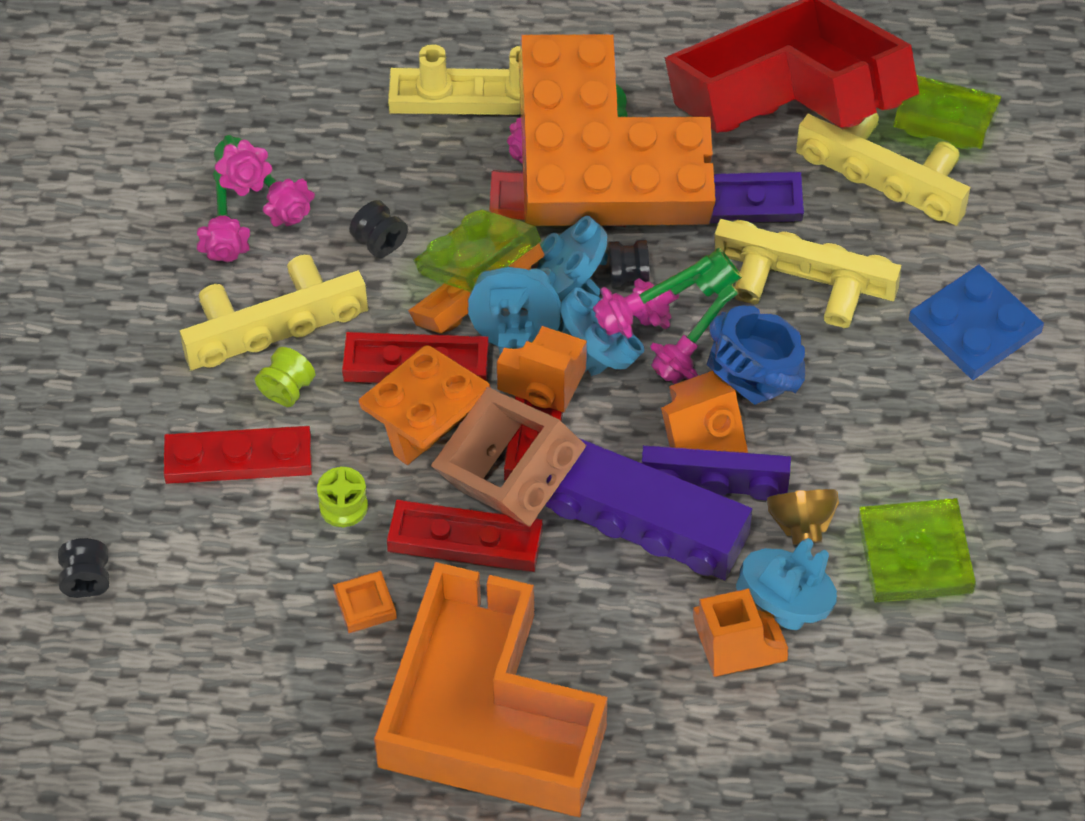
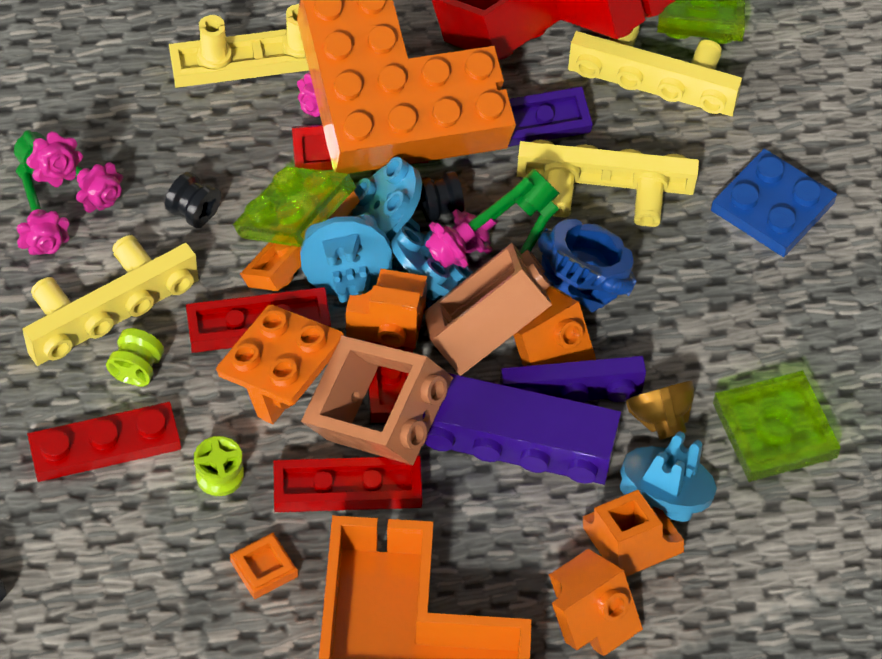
camera: 15 degrees left, 0 degrees up
(640, 382) = (488, 308): none -> nougat window
(679, 695) = (594, 603): none -> orange brick

